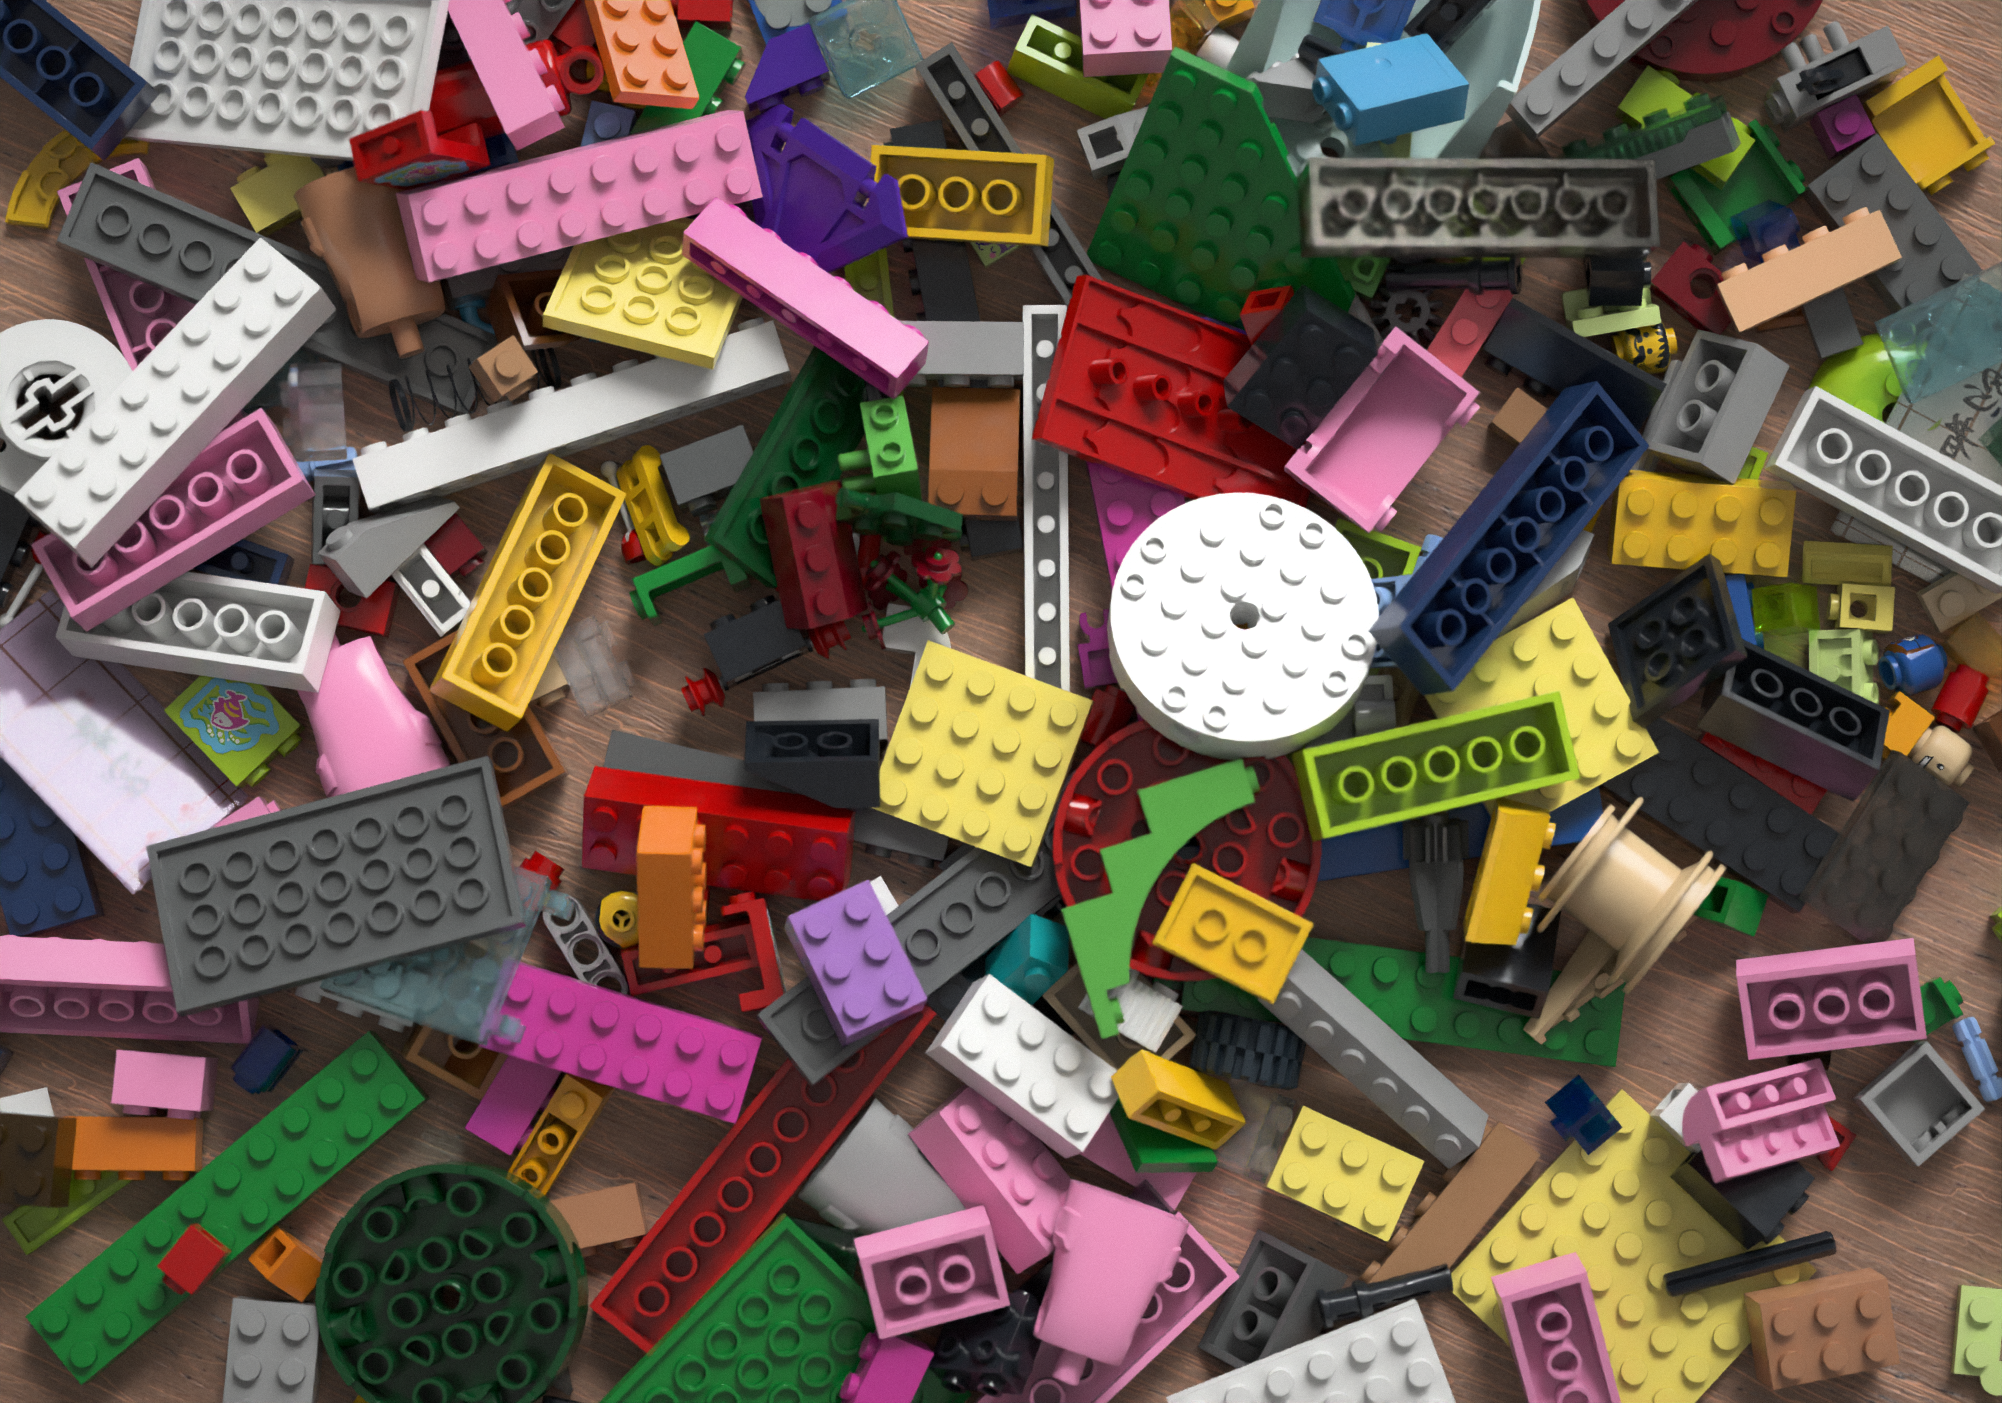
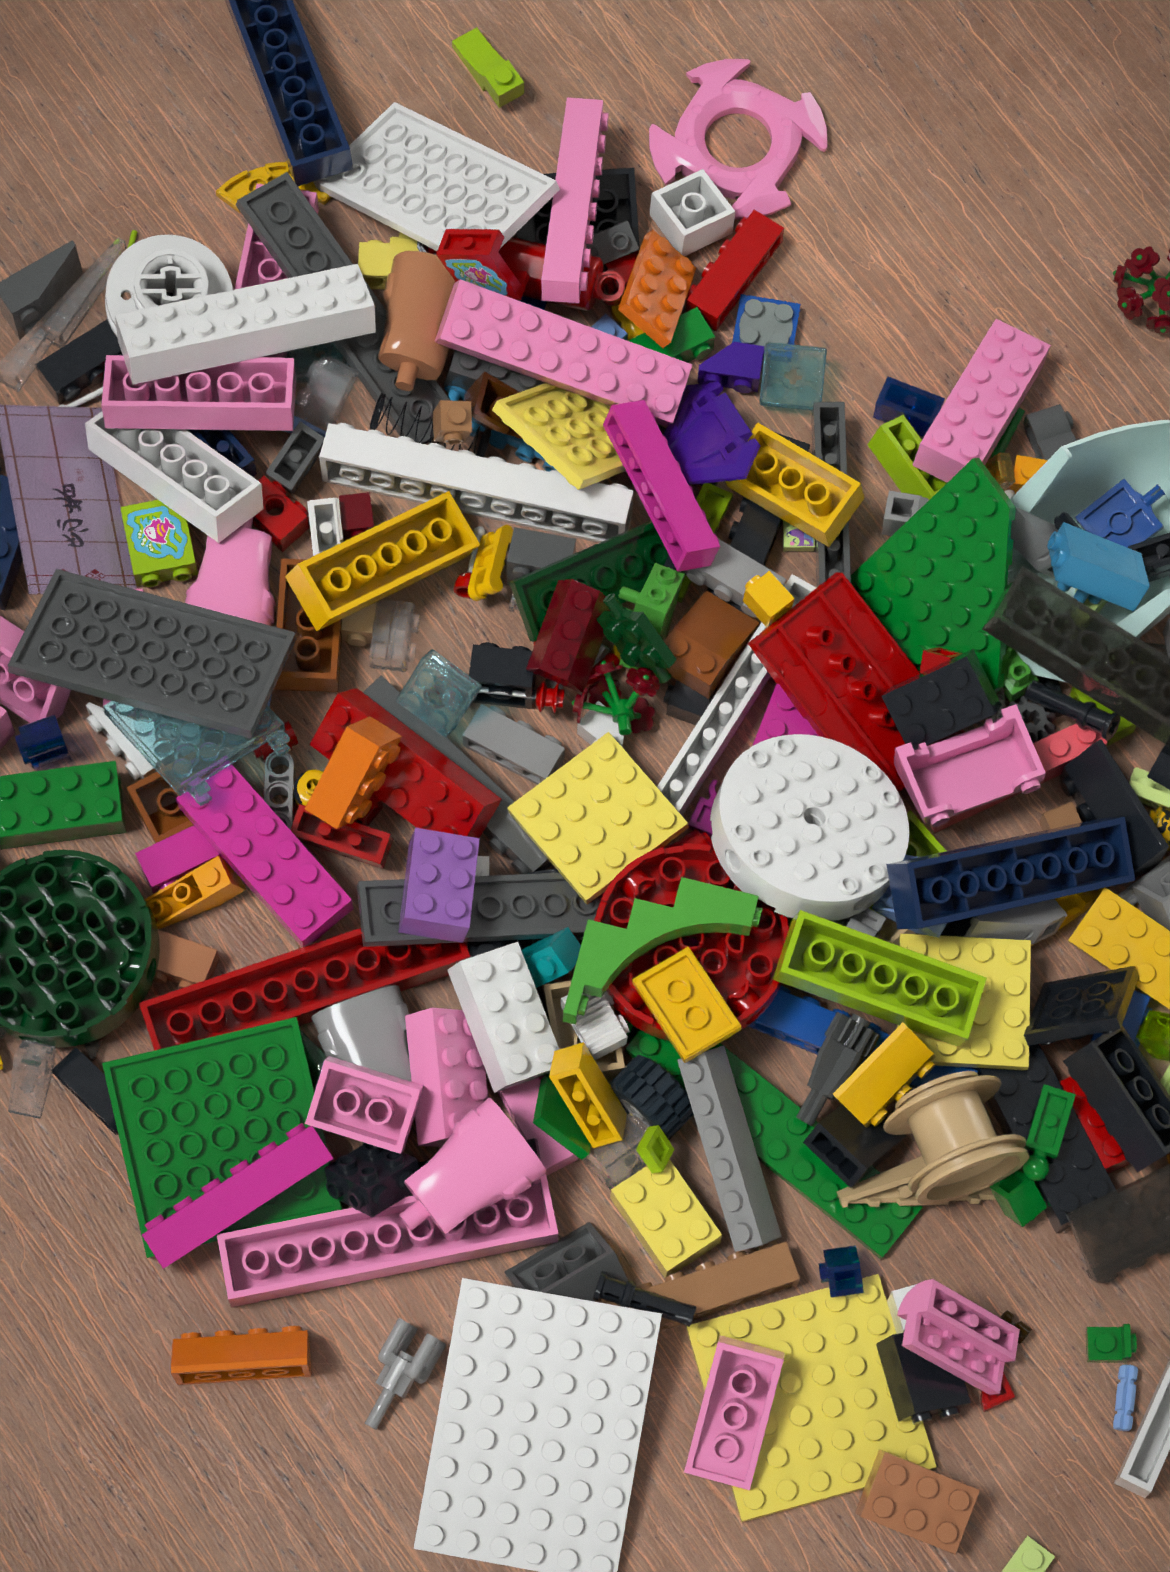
camera: 30 degrees right, 15 degrees down
(375, 546) = (303, 482): light grey slope -> none
(681, 573) = (482, 610): green panel -> none
(699, 718) = (455, 688): none -> clear light blue brick
(766, 950) = (392, 852): red panel -> none
(819, 758) = (497, 761): black slope -> none
(999, 87) = (857, 451): red brick -> none
(1019, 366) = (767, 598): none -> yellow brick
(1292, 1114) = (655, 1149): none -> lime plate
(1723, 815) = (1047, 1130): none -> green plate
(1749, 1264) = (894, 1431): black axle -> none
(1830, 999) = (1049, 1291): bright pink brick -> none
(1918, 1103) = (1067, 1396): light grey piece -> none

